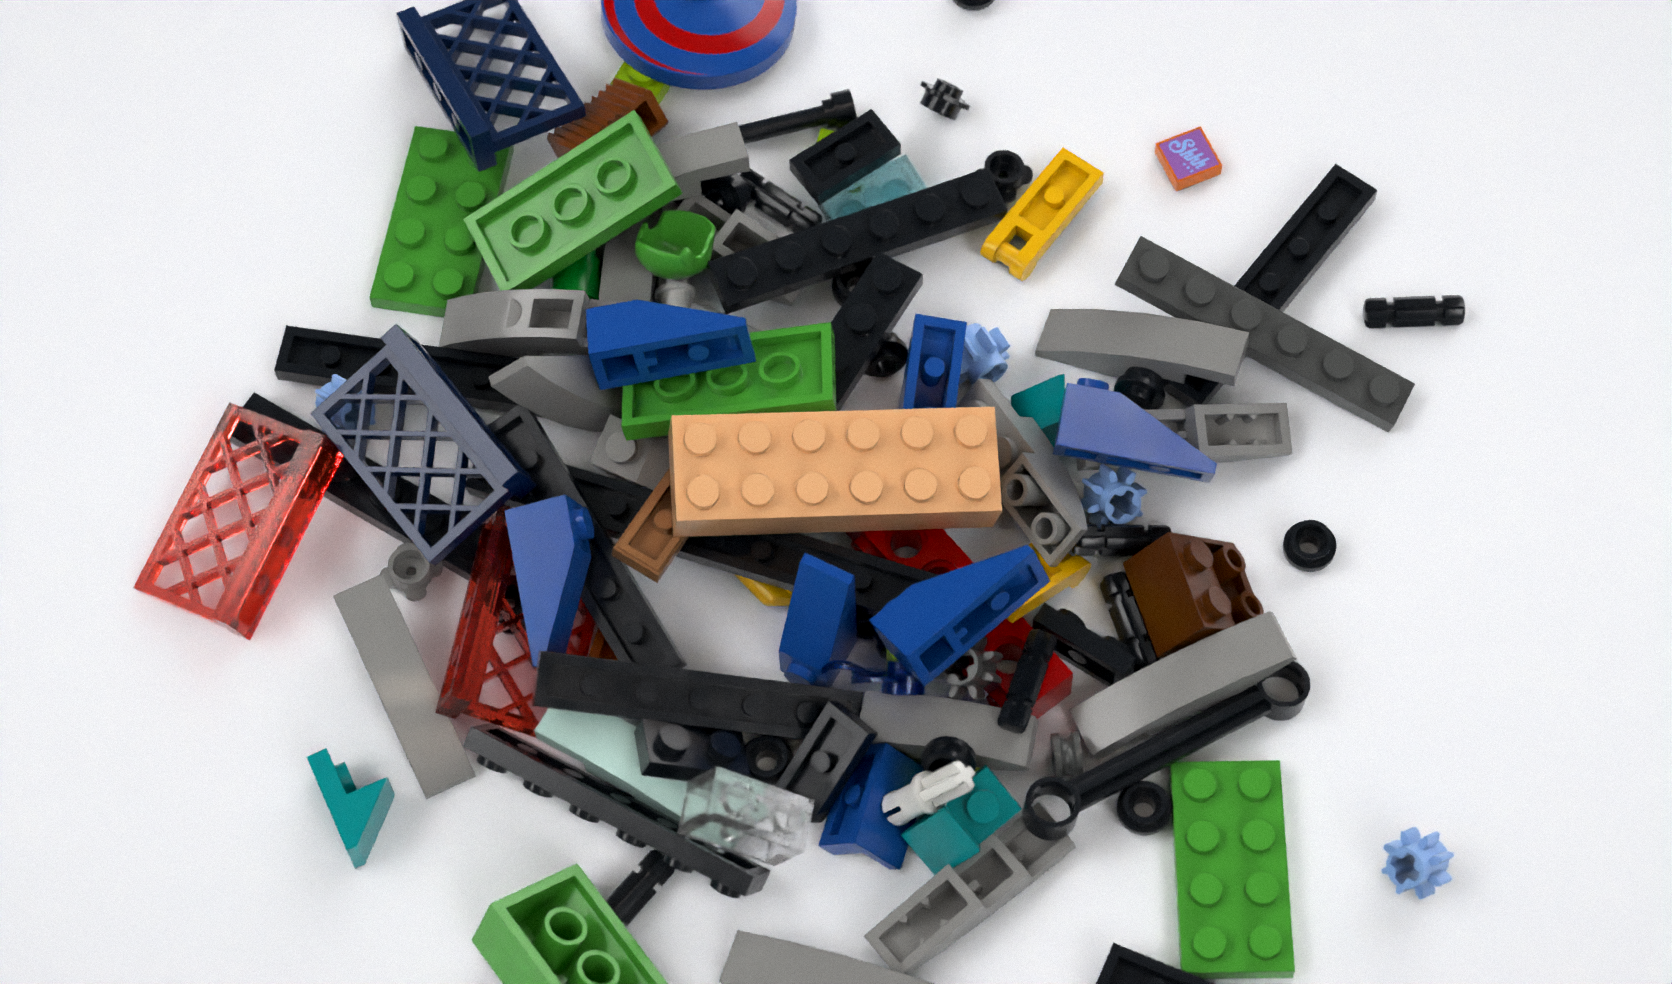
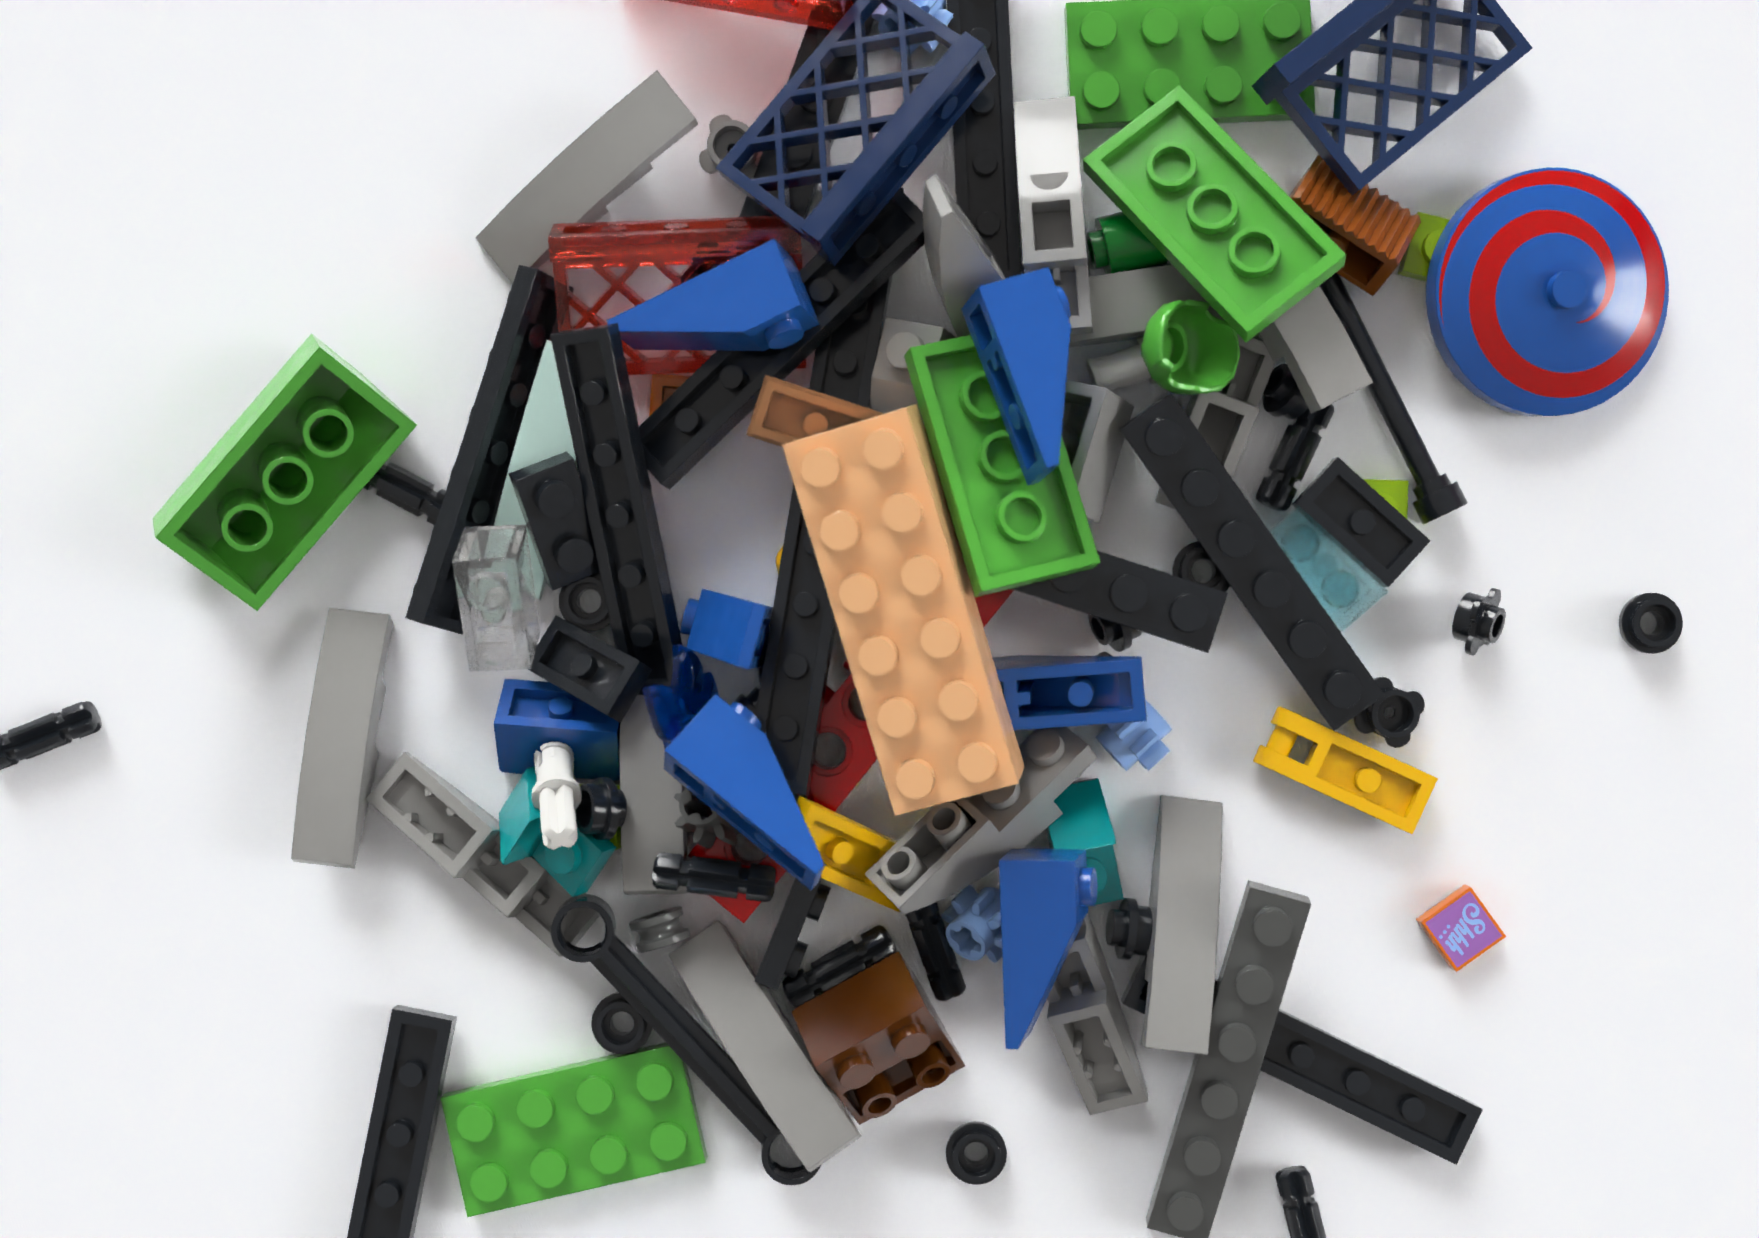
camera: 75 degrees right, 25 degrees up
(355, 812) = (420, 163): teal slope -> none

